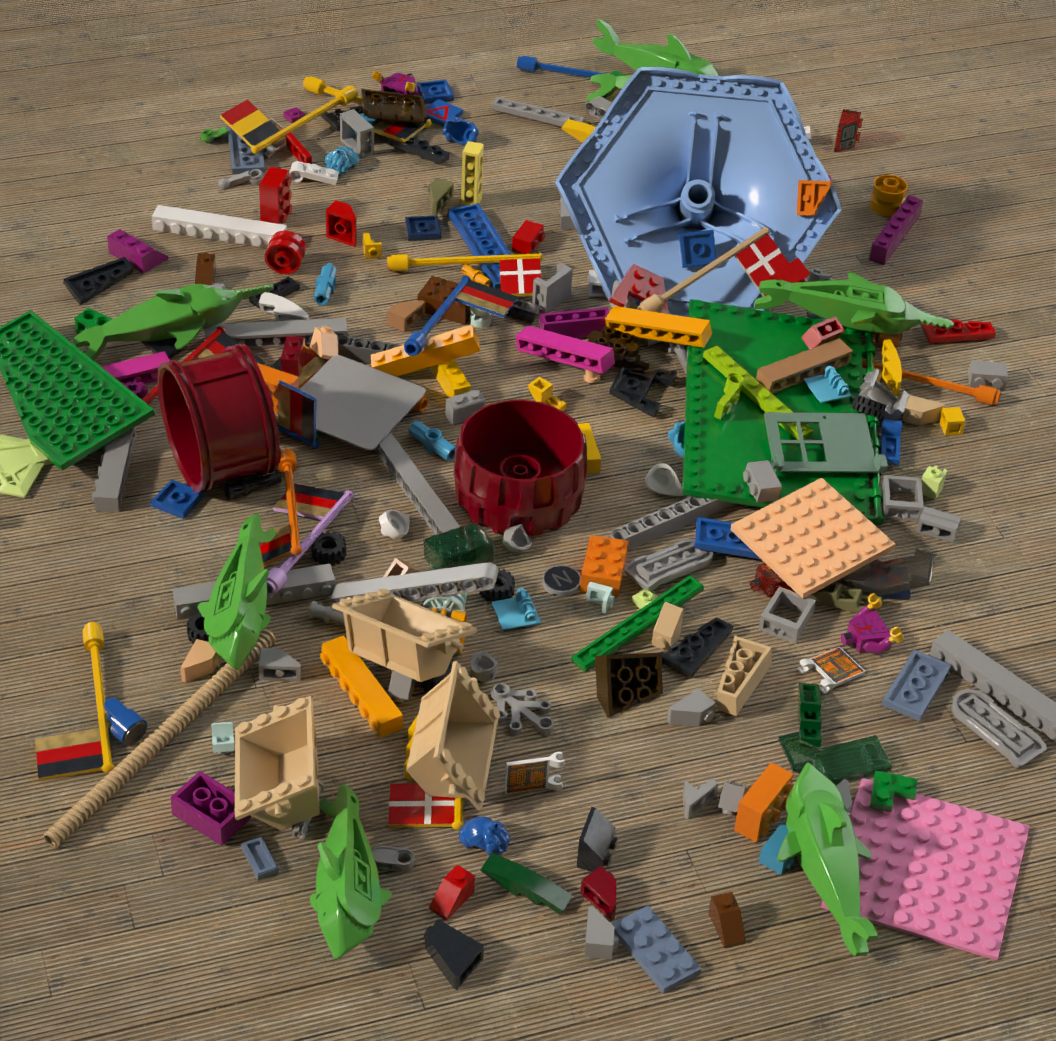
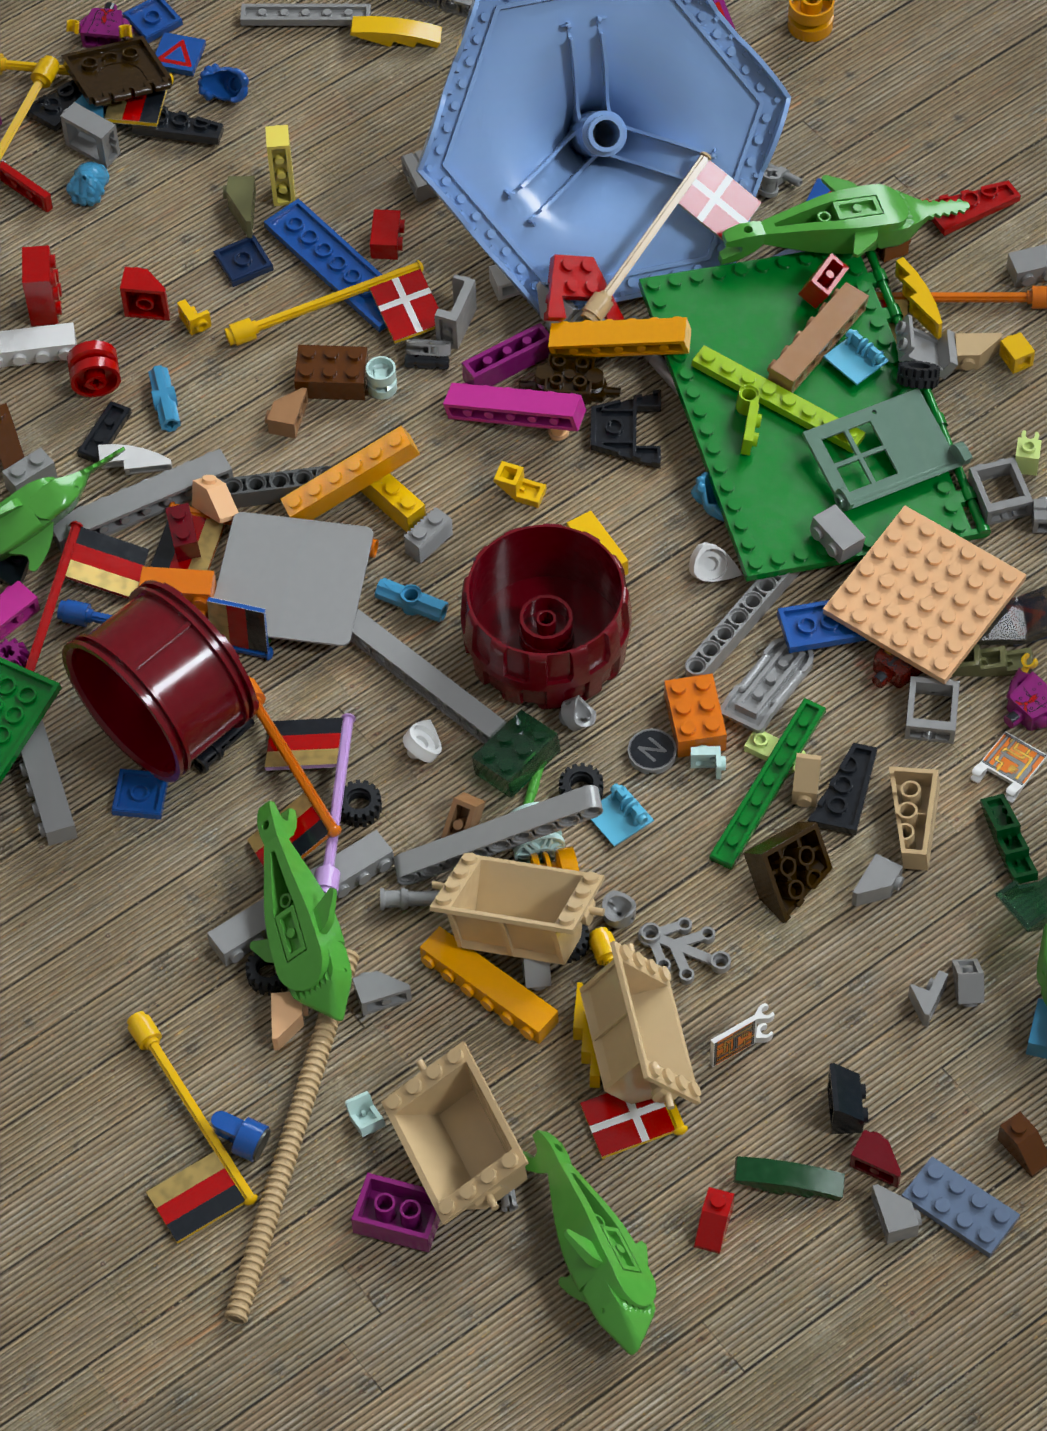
camera: 15 degrees left, 15 degrees up
(260, 858) = (479, 1252): sand blue tile -> none
(312, 171) = (44, 219): white plate -> none
(387, 858) = (621, 1198): light grey piece -> none
(453, 952) = (746, 1294): black slope -> none
(467, 293) = (371, 363): flag -> none
(476, 275) = (348, 319): light orange pin -> none
(485, 835) = (716, 1133): blue hair -> none
(697, 248) = (624, 203): blue tile -> none
(763, 802) = (1009, 981): orange brick -> none
(792, 272) = (755, 206): red slope -> none
(811, 196) = (749, 92): orange wing -> none
(891, 440) = (955, 410): blue plate -> none
(896, 230) = (840, 66): magenta brick -> none

